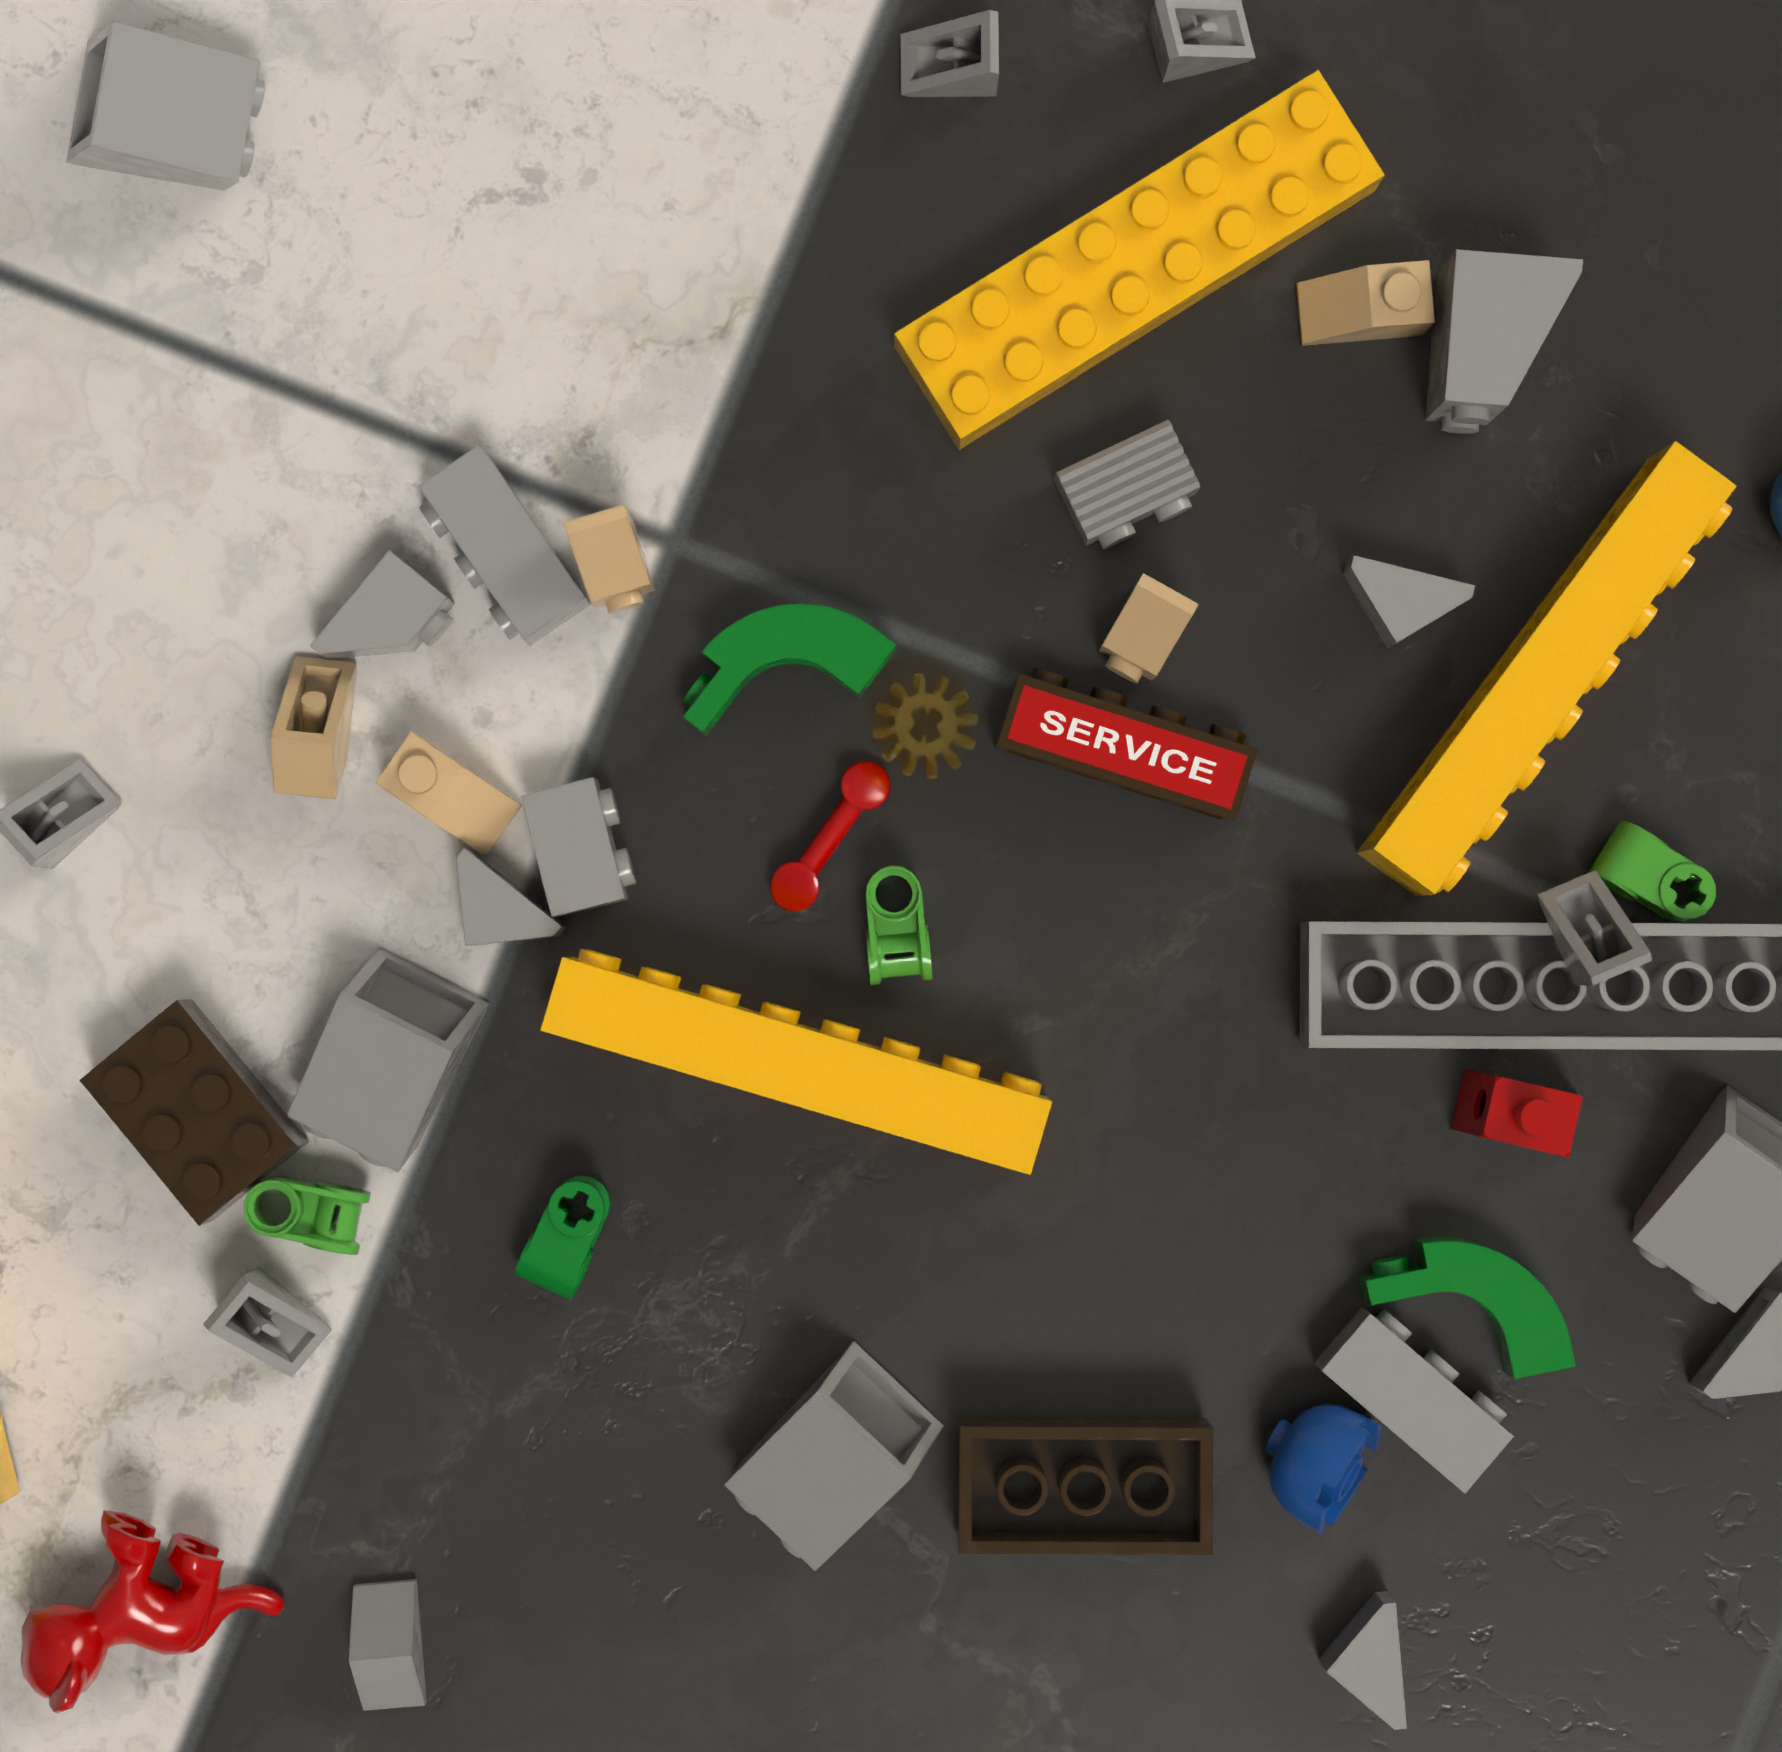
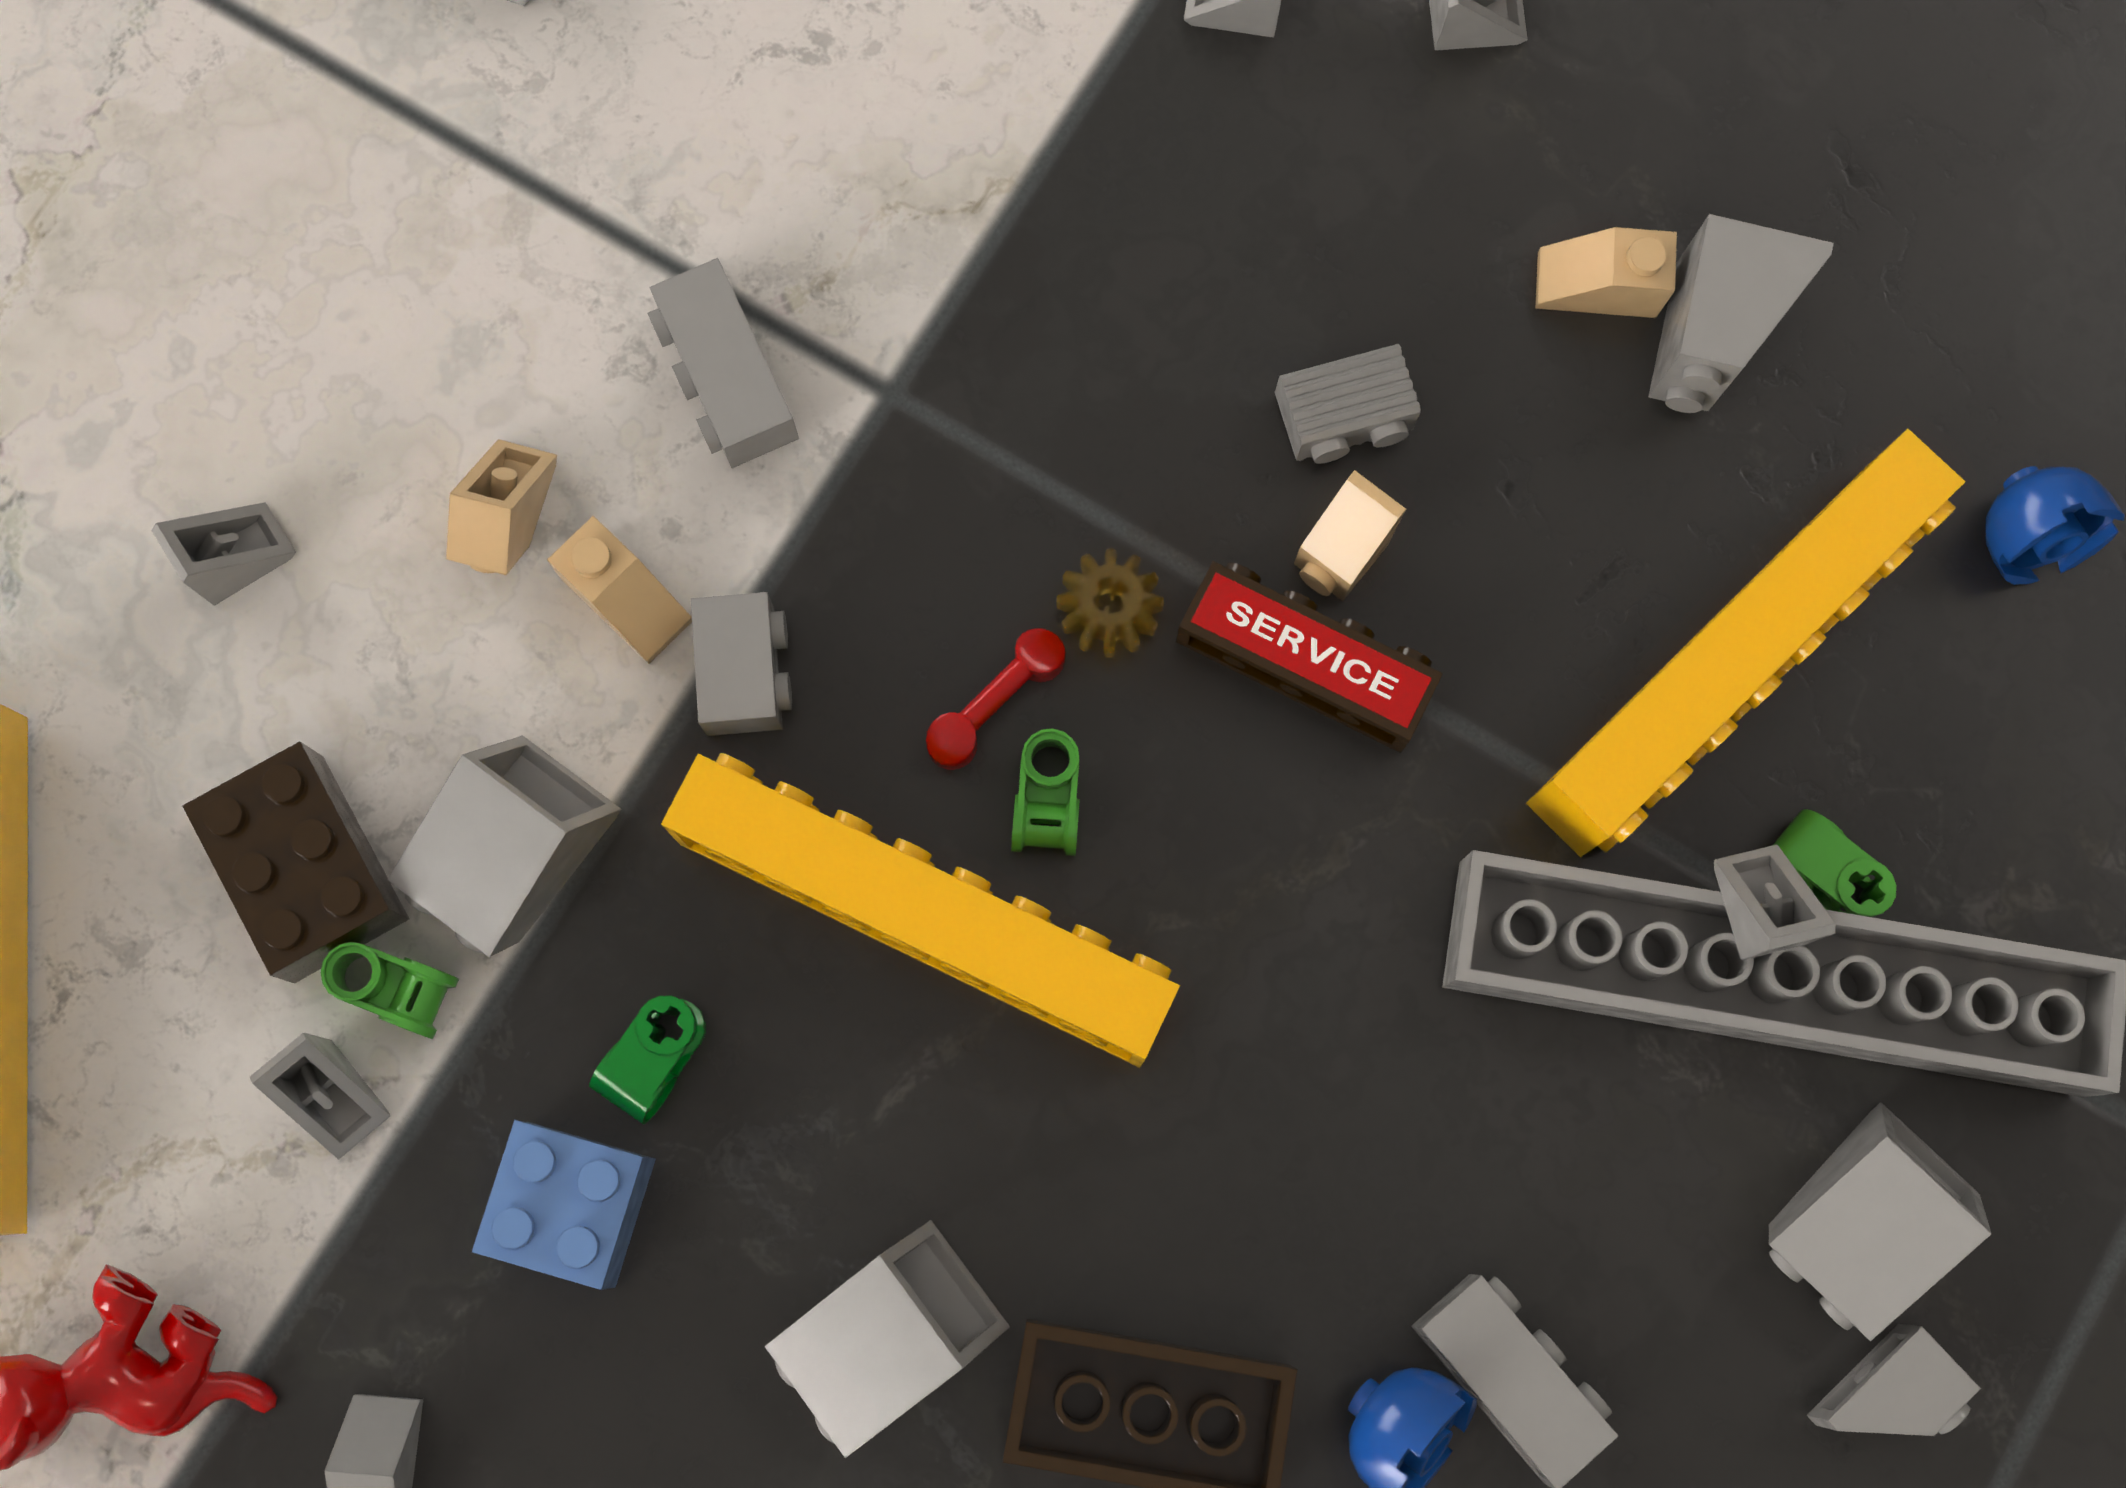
camera: 10 degrees right, 10 degrees down
(386, 614) = (593, 409): light grey slope -> none
(496, 908) = (645, 714): light grey slope -> none
(513, 1386) = (563, 1205): none -> medium blue brick
(610, 559) = (824, 383): tan slope -> none
(781, 635) = (982, 493): green arch -> none
(1138, 259) = (1388, 196): yellow brick -> none
(1401, 598) = (1607, 555): light grey slope -> none
(1517, 1113) = (1664, 1090): red torso -> none
(1523, 1313) = (1637, 1295): green arch -> none

